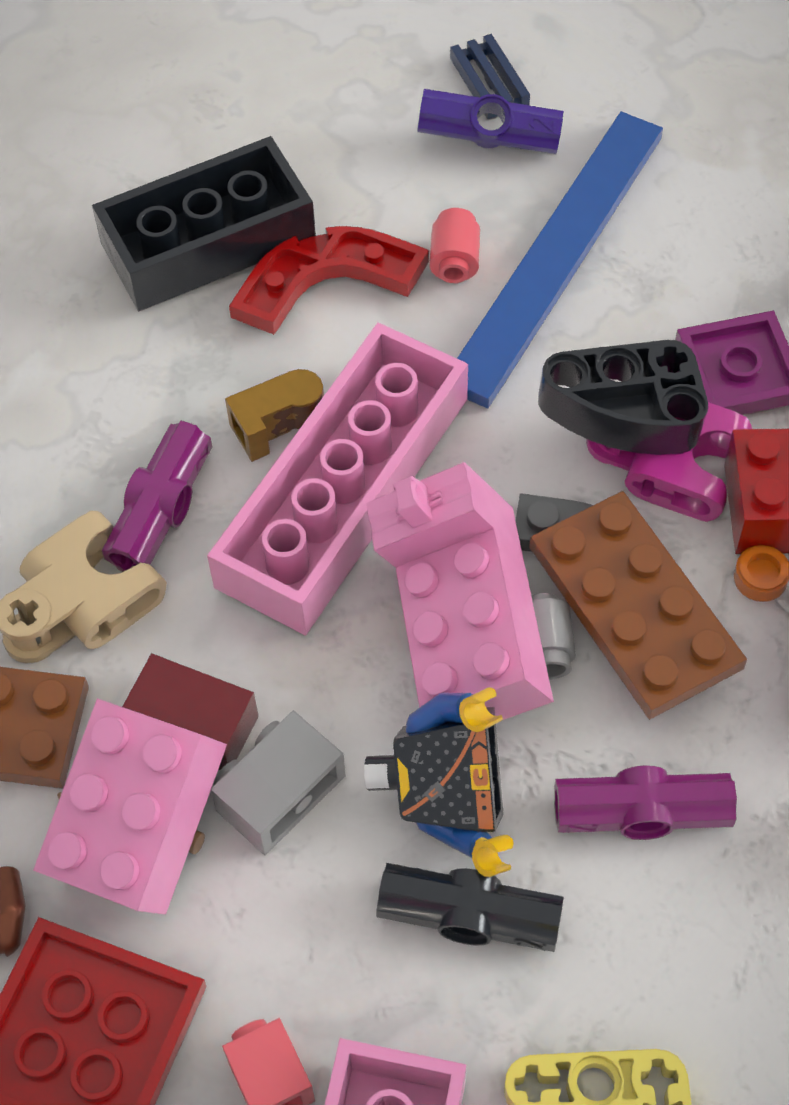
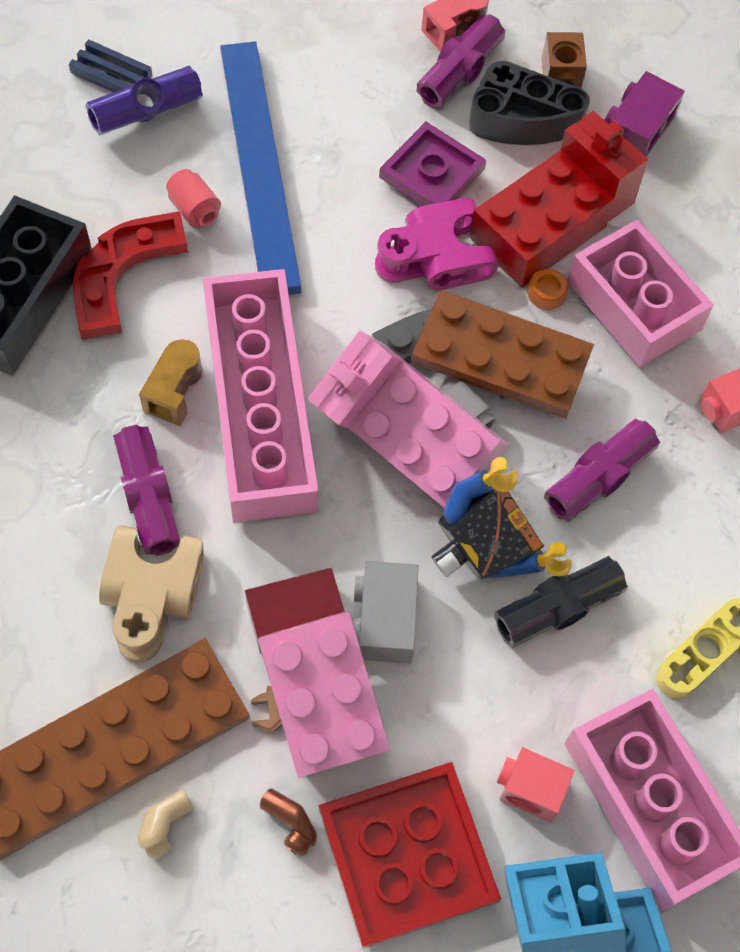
camera: 45 degrees left, 5 degrees up
(630, 415) = (401, 227): black beam -> none

